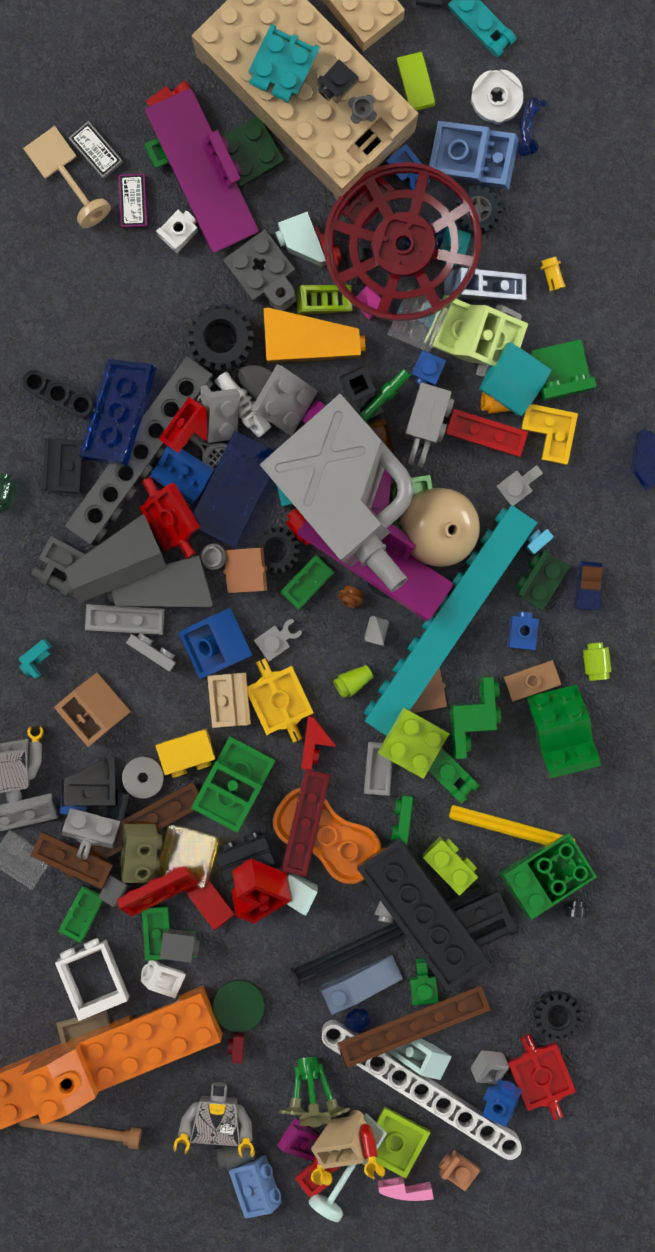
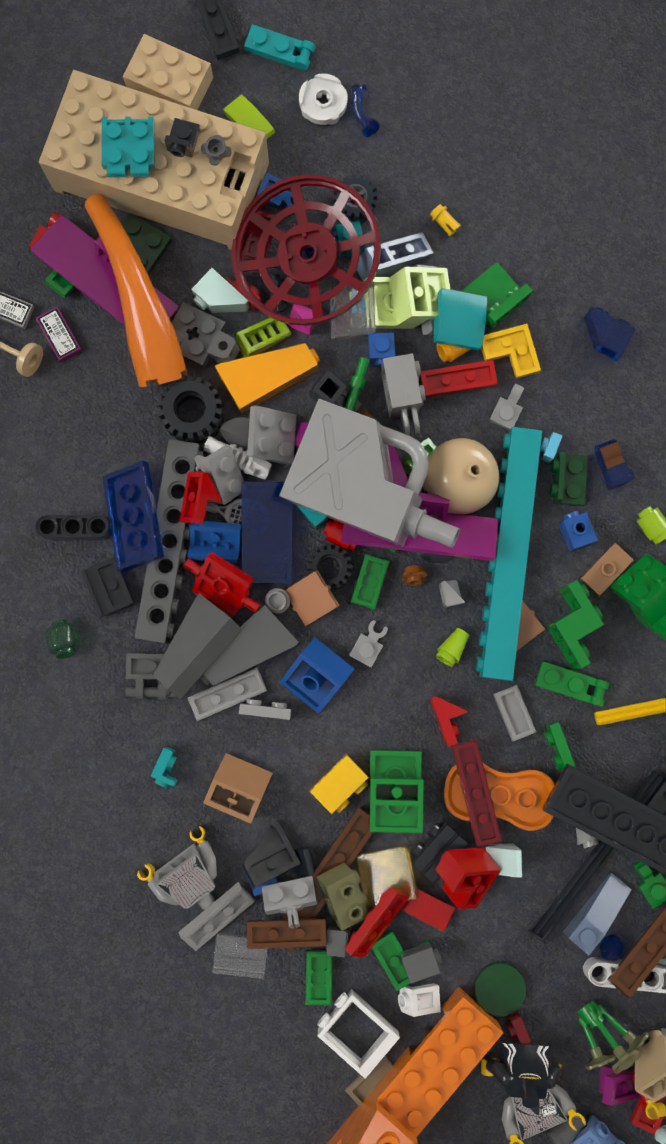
camera: 30 degrees left, 5 degrees down
(131, 777) = (315, 837): light grey piece -> none
(174, 239) = (109, 347): white brick -> none
(217, 246) = (148, 328): none -> orange brick
(222, 1084) = (524, 1071): none -> black torso
(228, 700) = (354, 718): tan plate -> none
(279, 700) = (397, 696): yellow plate -> none
(413, 743) = (534, 674): lime plate -> none
(449, 865) = (625, 768): lime brick -> none
(474, 154) = (329, 152): medium blue slope -> none

